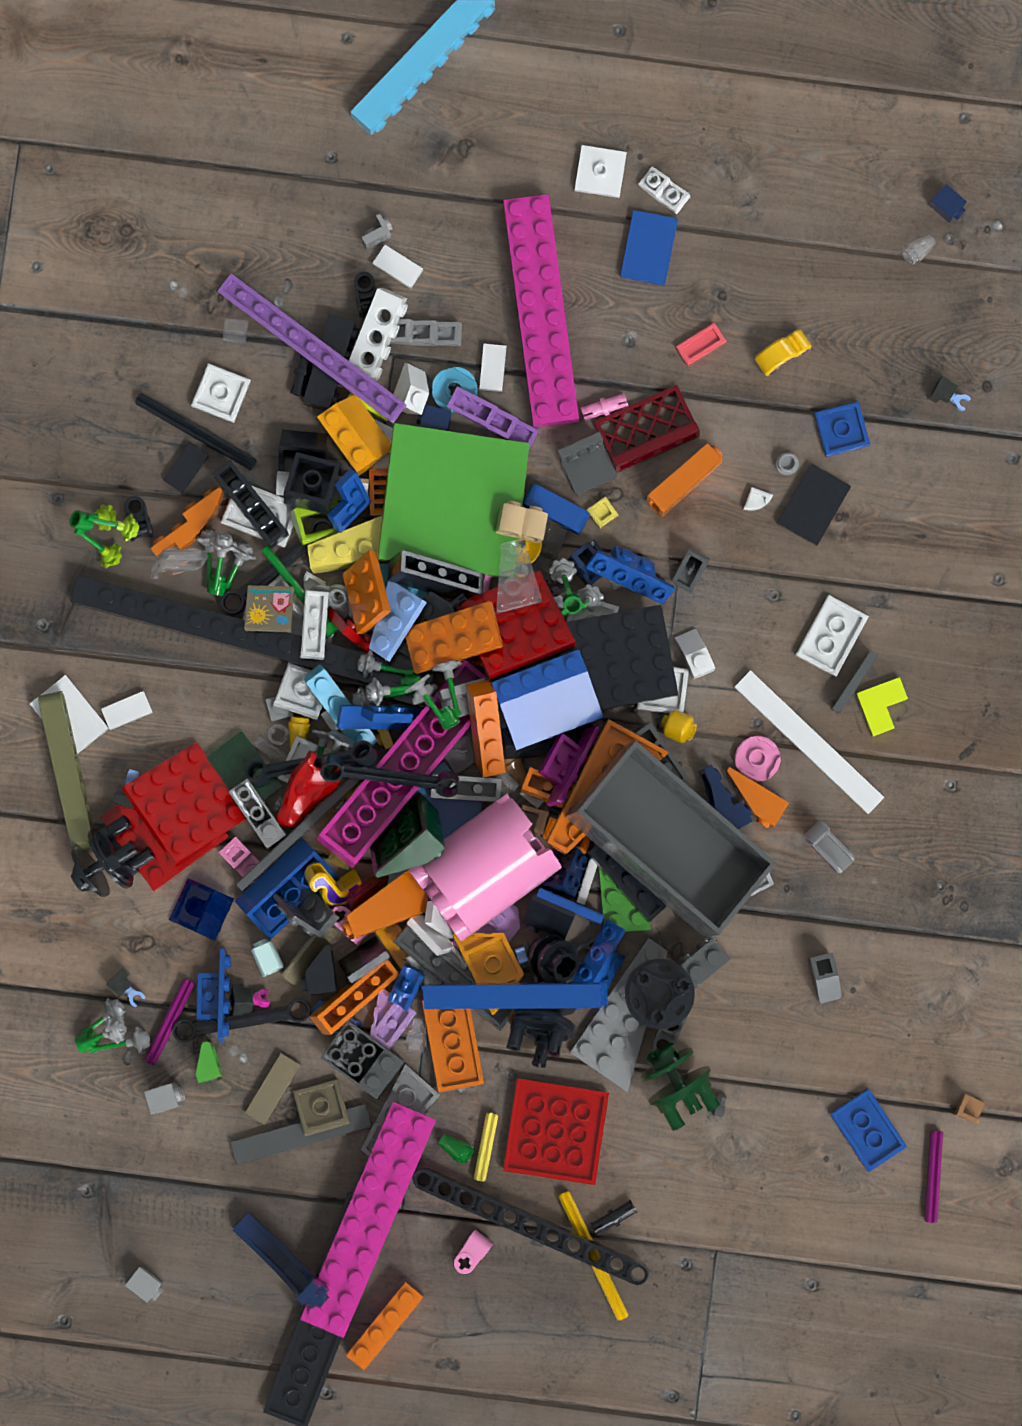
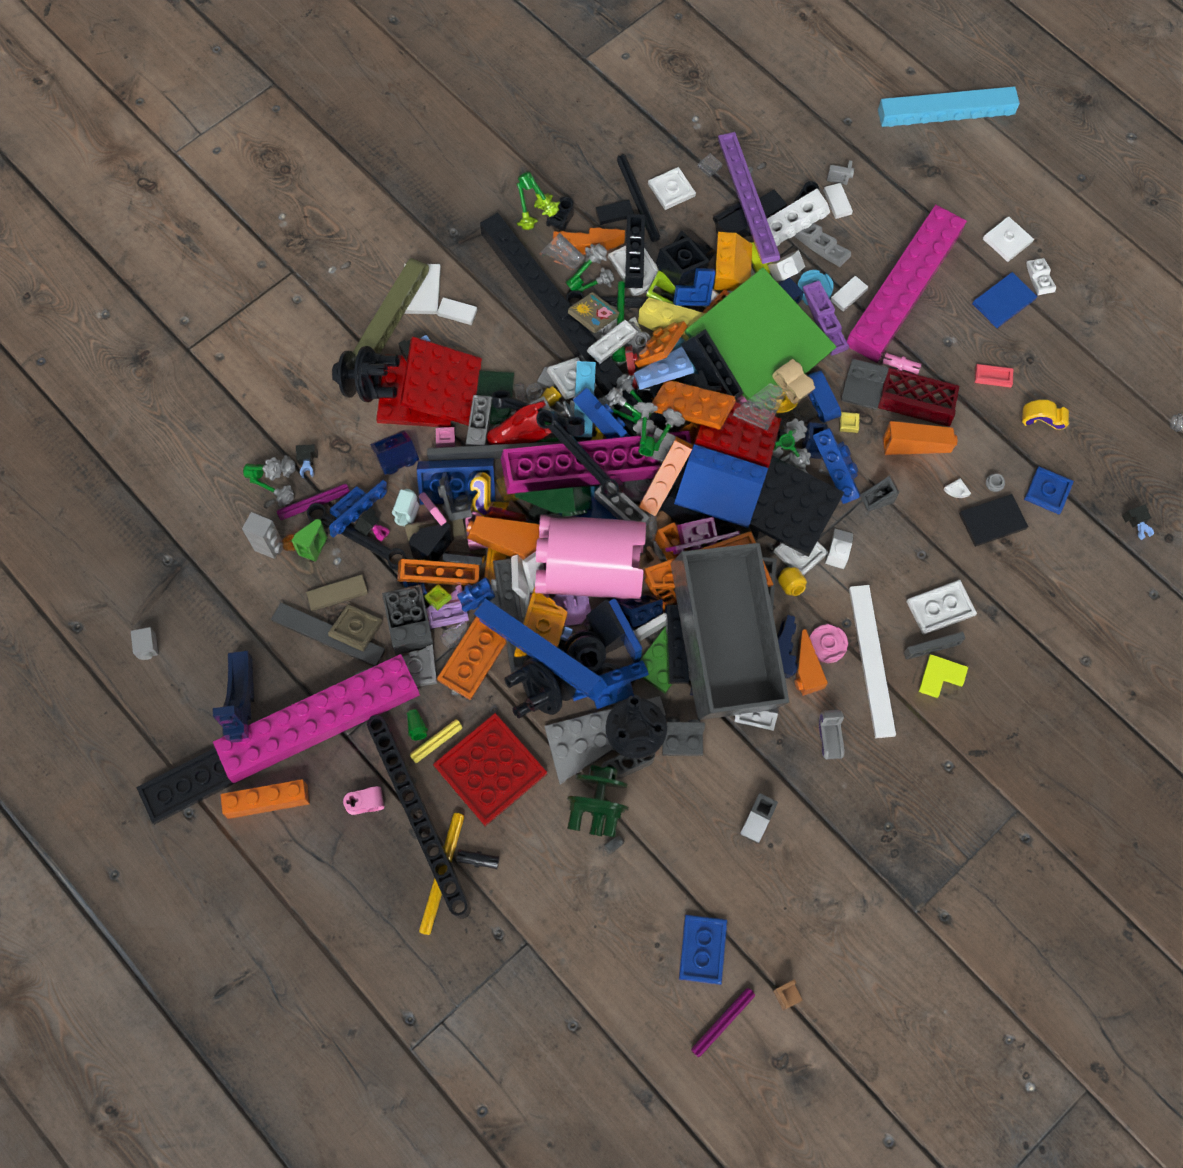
camera: 40 degrees right, 15 degrees down
(187, 1079) = (287, 543): none -> clear orange plate
(295, 940) = (432, 508): none -> bright pink tile
(371, 1017) = (437, 597): none -> lime tile

